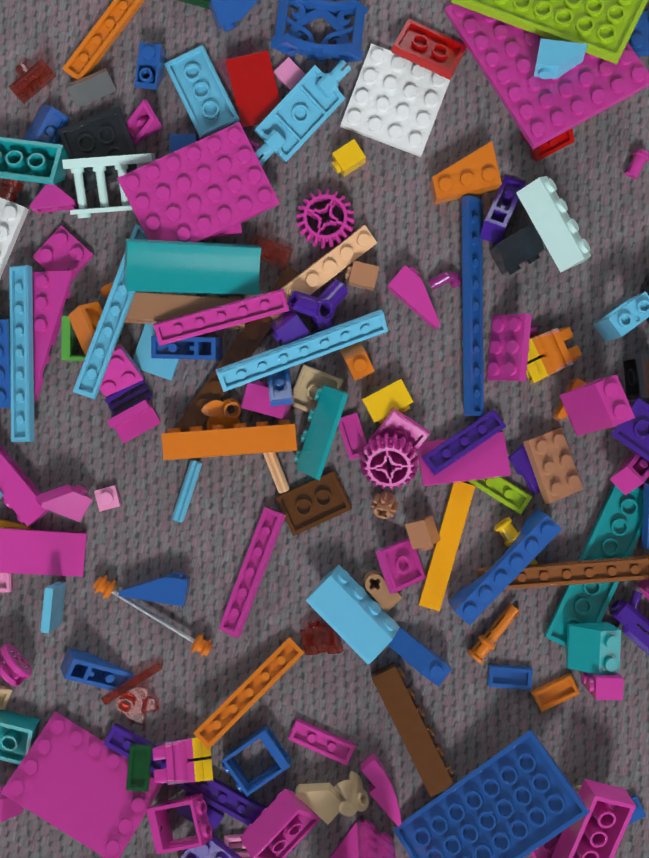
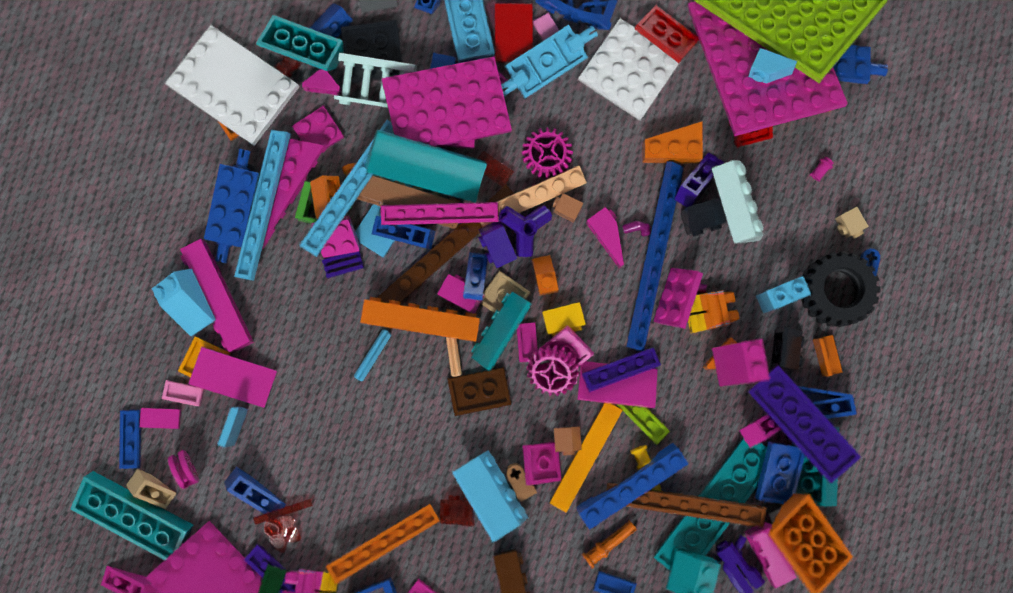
camera: 15 degrees right, 5 degrees down
(66, 501) = (268, 338): dark pink slope -> none
(107, 498) = (303, 345): bright pink plate -> none
(107, 588) = (283, 423): orange axle -> none
(134, 421) = (343, 284): dark pink panel -> none
(143, 123) = (413, 38): dark pink slope -> none
(166, 589) = (333, 436): blue slope -> none
(218, 413) = (416, 294): orange plate -> none
(252, 572) = (411, 439): dark pink plate -> none
(301, 350) = (500, 257): medium azure tile -> none
(348, 158) = (578, 107): yellow brick -> none
(384, 505) = (540, 407): nougat gear -> none
(420, 657) = (539, 548): blue slope -> none
(522, 466) = (673, 405): dark purple slope -> none
(553, 465) = (693, 408): nougat plate -> none

